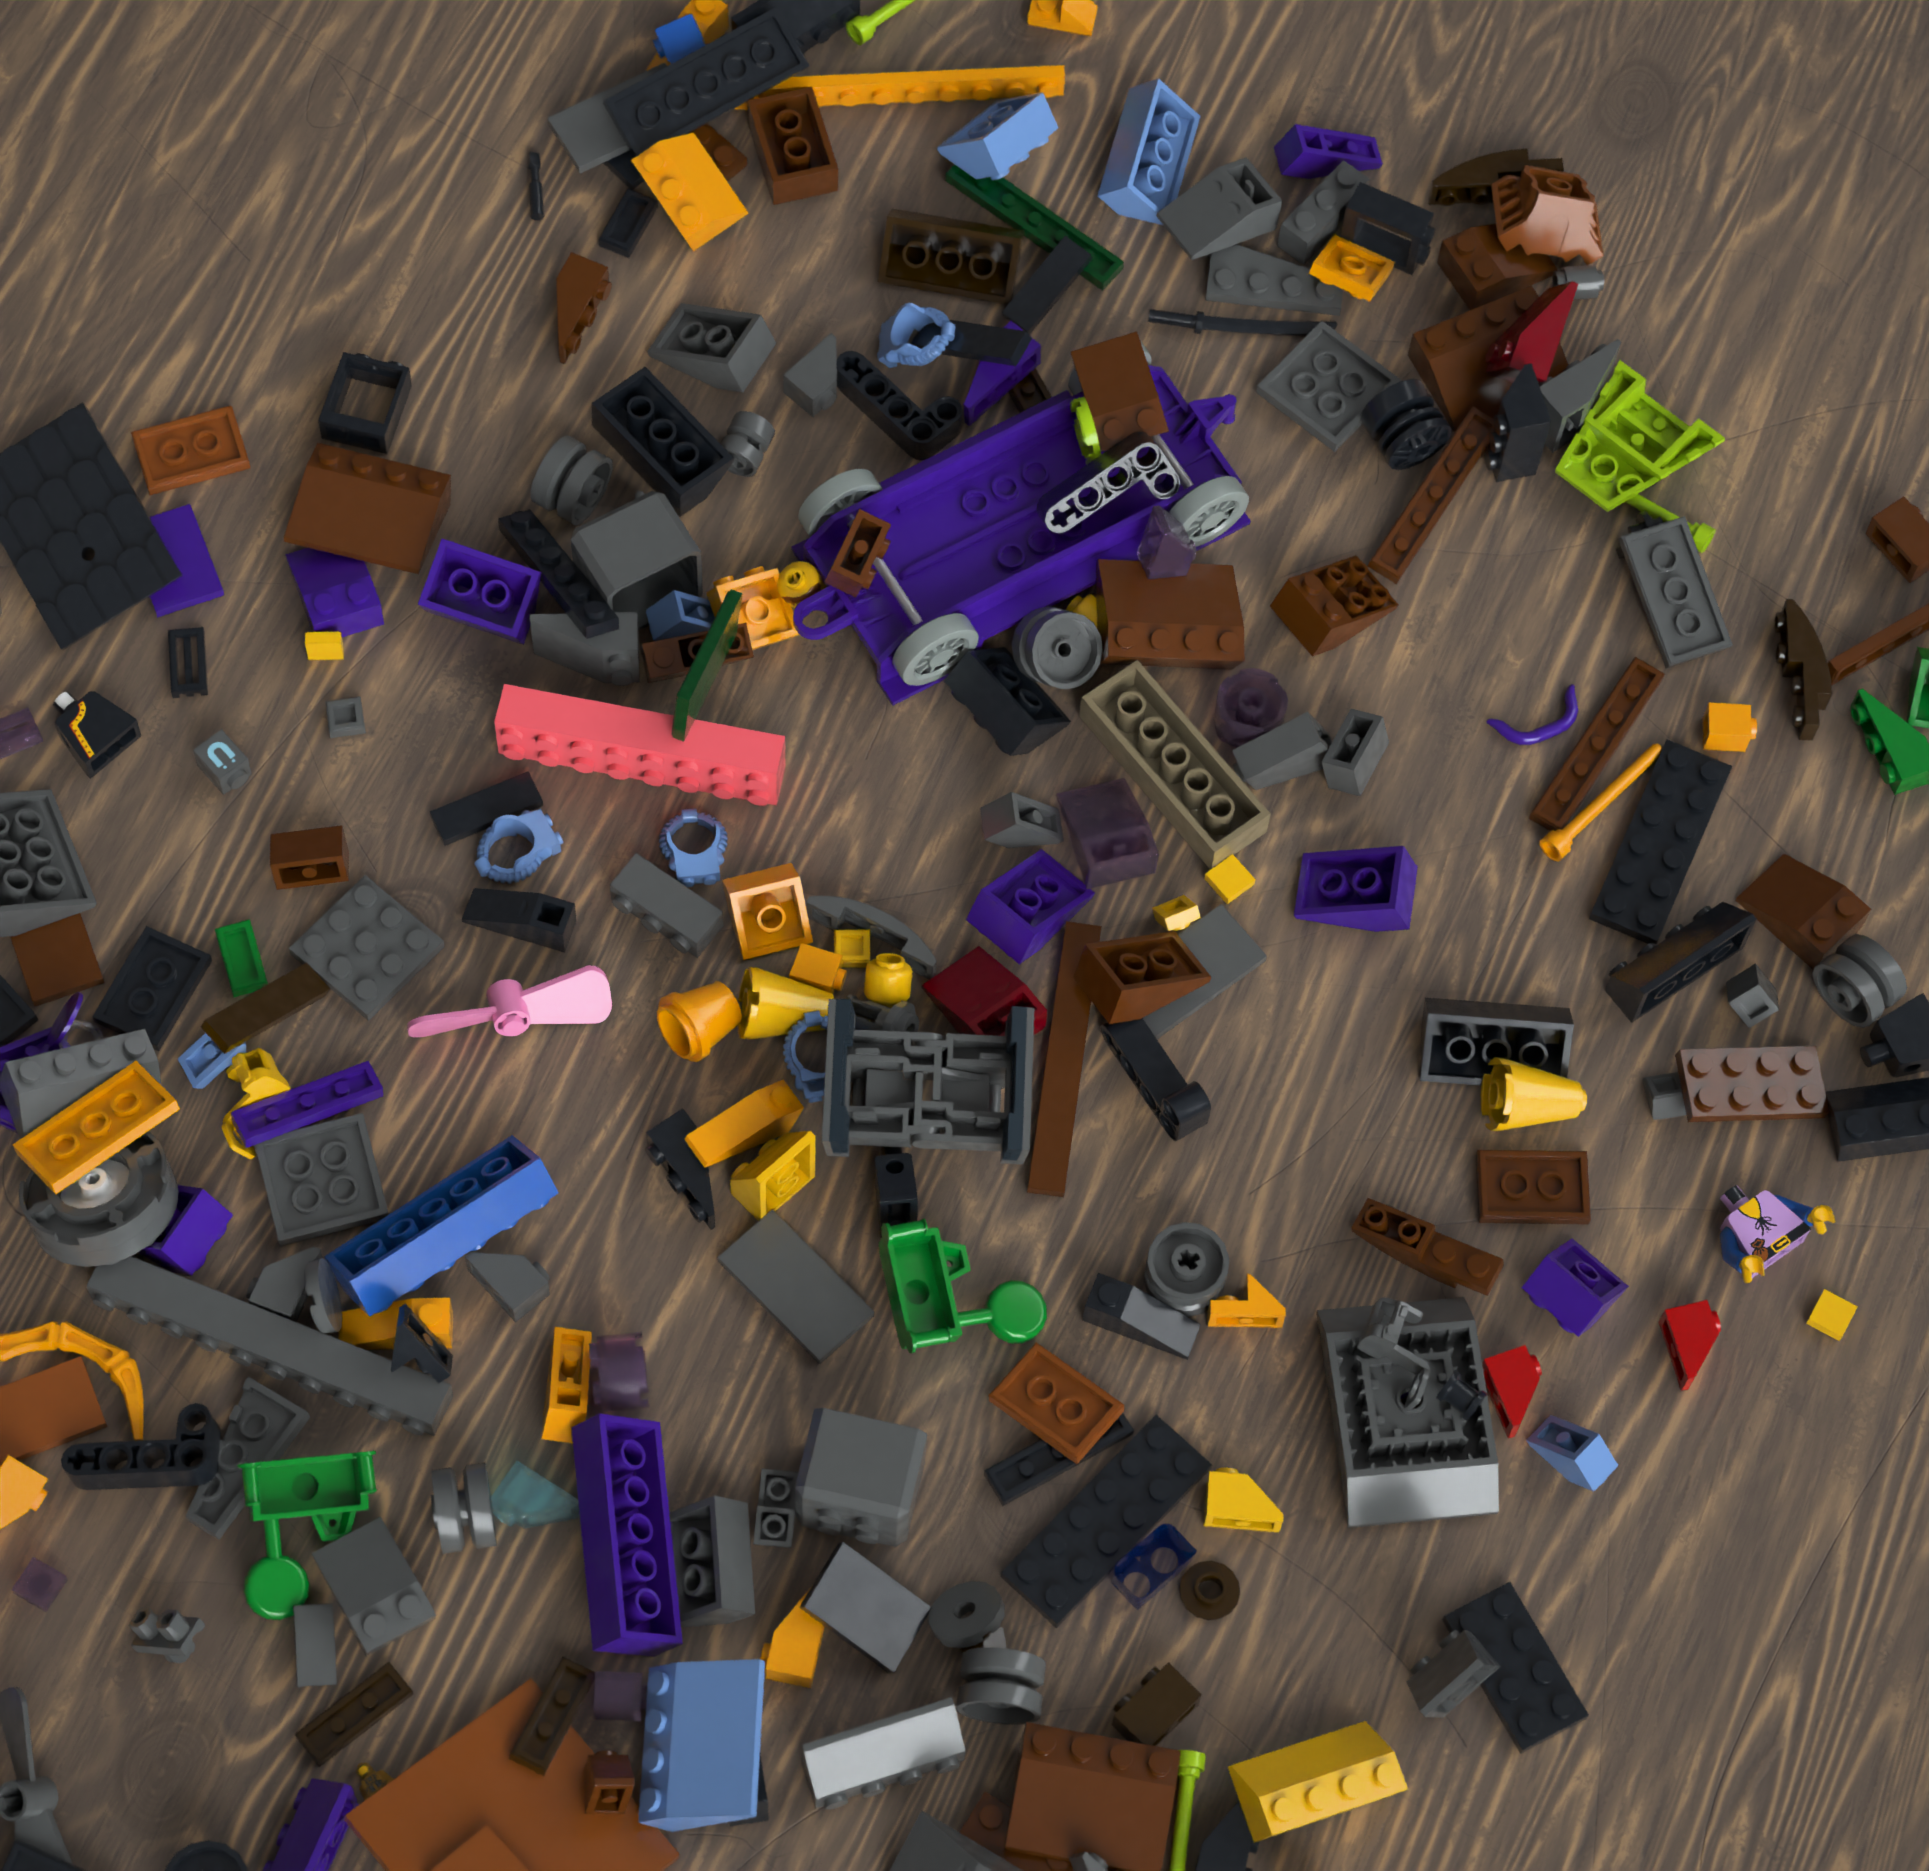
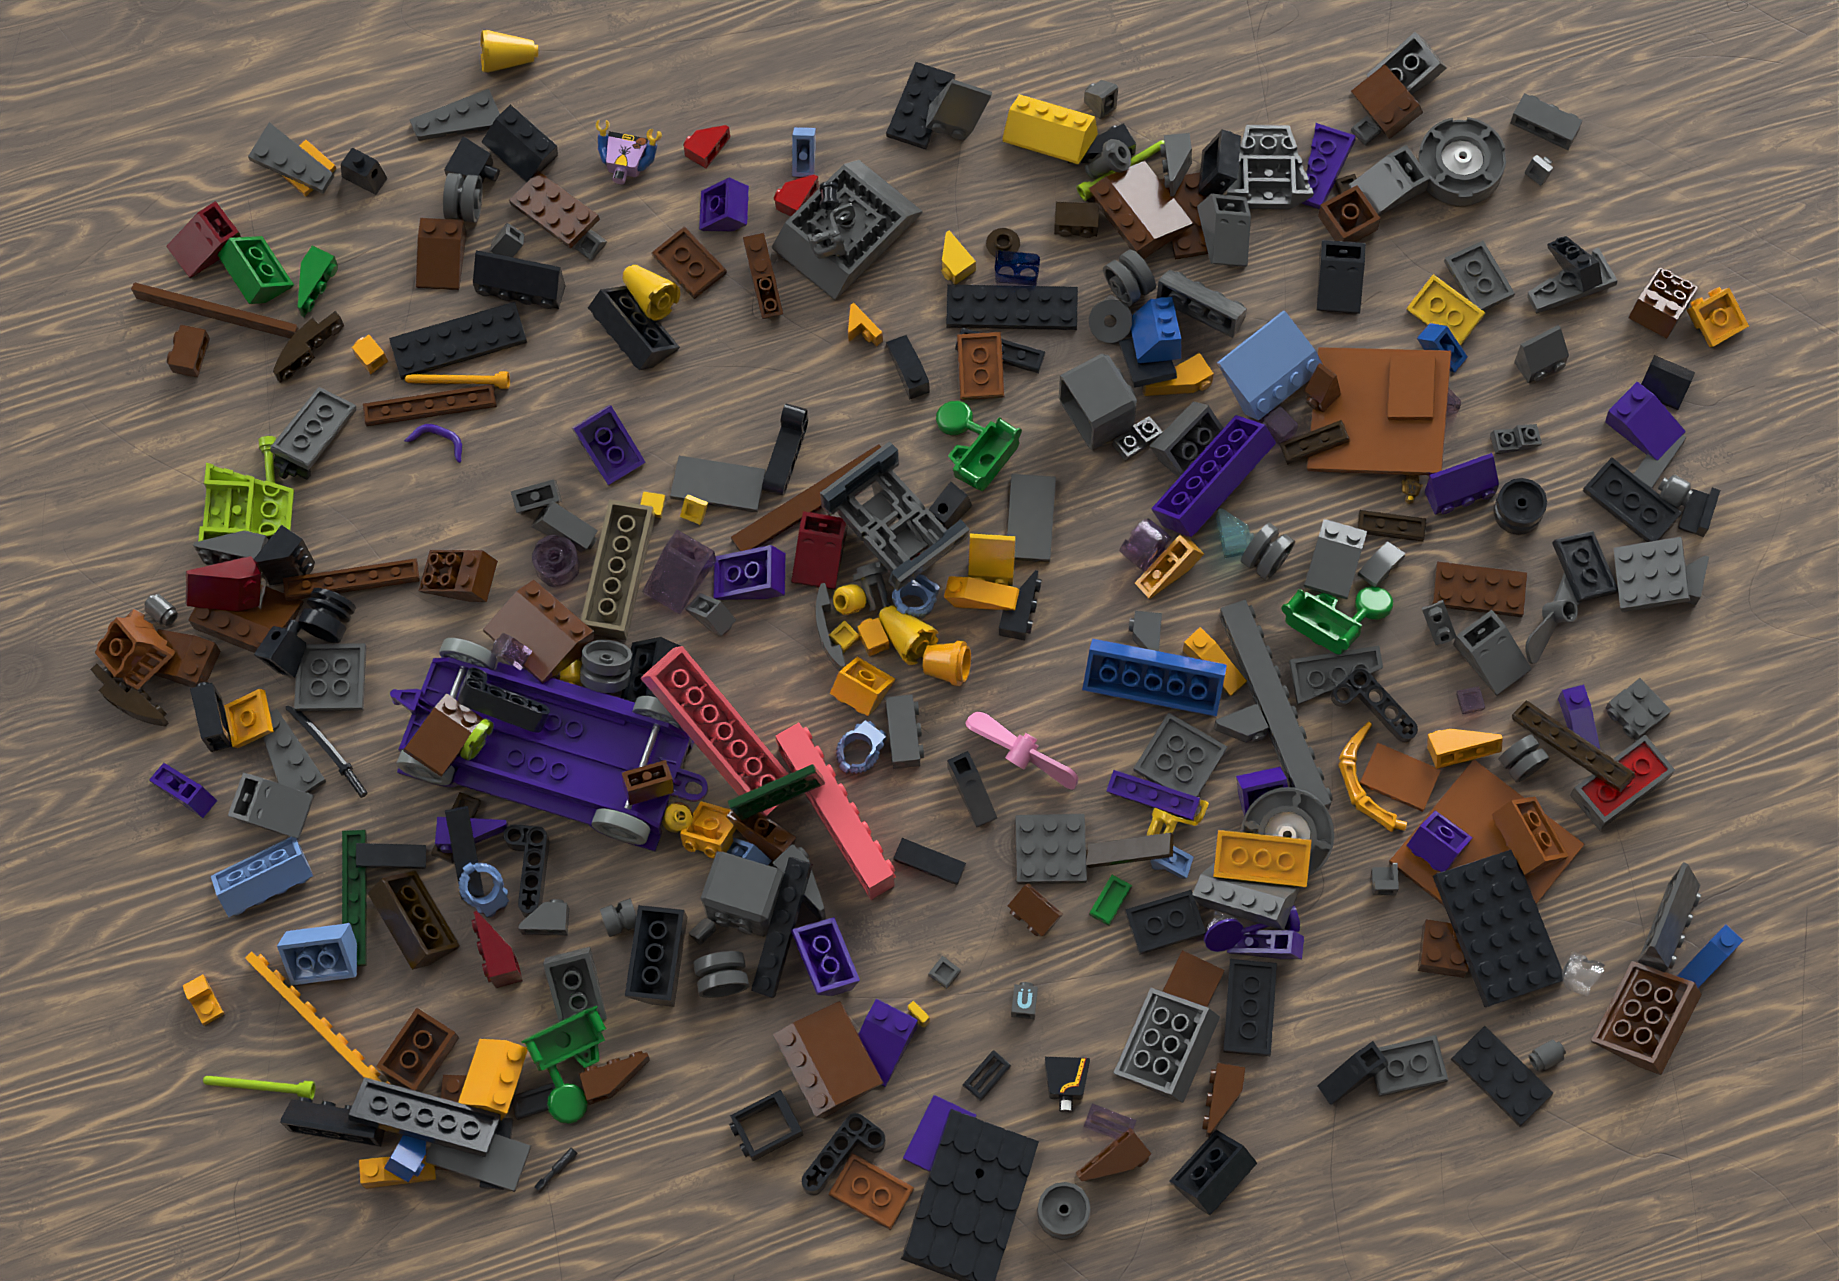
camera: 125 degrees left, 5 degrees up
(69, 1664) = (1492, 652): none -> dark grey slope
(163, 1742) = (1480, 589): none -> reddish brown plate
(262, 441) = (839, 1156): none -> black beam
(325, 1295) = (1236, 695): dark grey tile -> none
(418, 1342) = (1219, 632): black slope -> none
(531, 825) = (922, 817): medium blue piece -> none
(660, 275) = (559, 1042): none -> green piece
(827, 292) = (501, 962): none -> dark red slope
(850, 671) = (712, 723): none -> coral brick
(890, 1648) = (1156, 331): none -> blue slope
(1138, 974) = (744, 490): reddish brown slope -> none
(1186, 1268) = (869, 361): dark grey wheel -> none
(1208, 1823) = (1114, 157): none -> dark grey piece
(1320, 213) = (224, 760): dark grey brick -> none
(1402, 345) = (283, 649): none -> black torso
(1831, 1315) = (638, 103): yellow tile -> none

